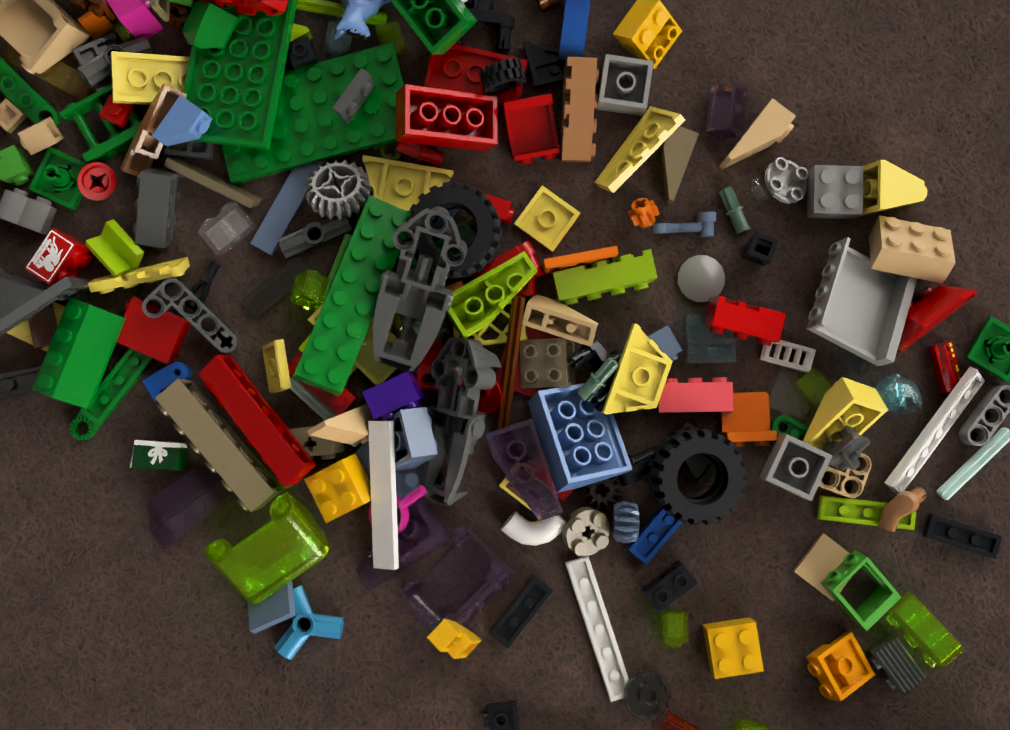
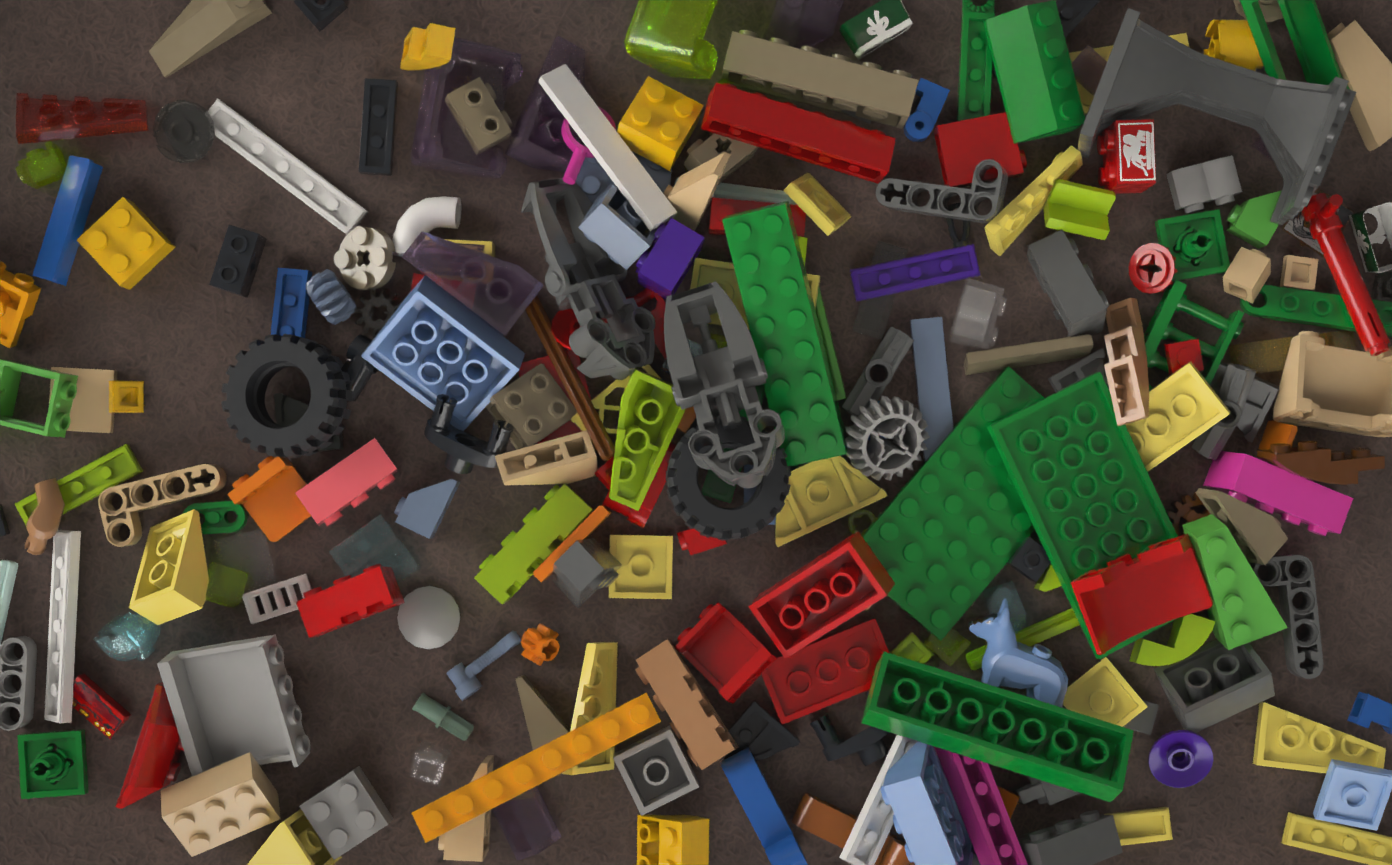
camera: 140 degrees right, 0 degrees up
(123, 32) = (1237, 446): clear neon green tile -> none
(182, 123) = (1097, 390): medium blue slope -> none
(208, 26) = (1148, 514): green slope -> none
(246, 281) = (914, 272): none -> dark purple tile
(309, 289) = (841, 309): clear neon green brick -> none
(354, 96) = (936, 548): dark grey plate -> none
(416, 50) = (912, 649): none -> lime tile
(421, 153) = (823, 542): red axle -> none
(451, 573) = (478, 115): none -> dark tan brick
(502, 76) = (793, 683): black tyre -> none
(582, 234) = (585, 570): none -> dark grey wedge
(598, 379) = (463, 426): sand green axle -> none
(639, 375) = (422, 460): light yellow wing -> none
(674, 627) = (203, 221): clear neon green brick -> none
(700, 132) = (535, 767): none -> light orange plate
(760, 249) = (385, 692): black brick -> none
(760, 688) = (67, 220): none -> blue panel
(786, 180) = (407, 787): light grey dish -> none
(795, 466) = (187, 477): light grey brick -> none
(798, 549) = (126, 396): none -> yellow tile
(848, 450) = (142, 532): dark grey hips -> none

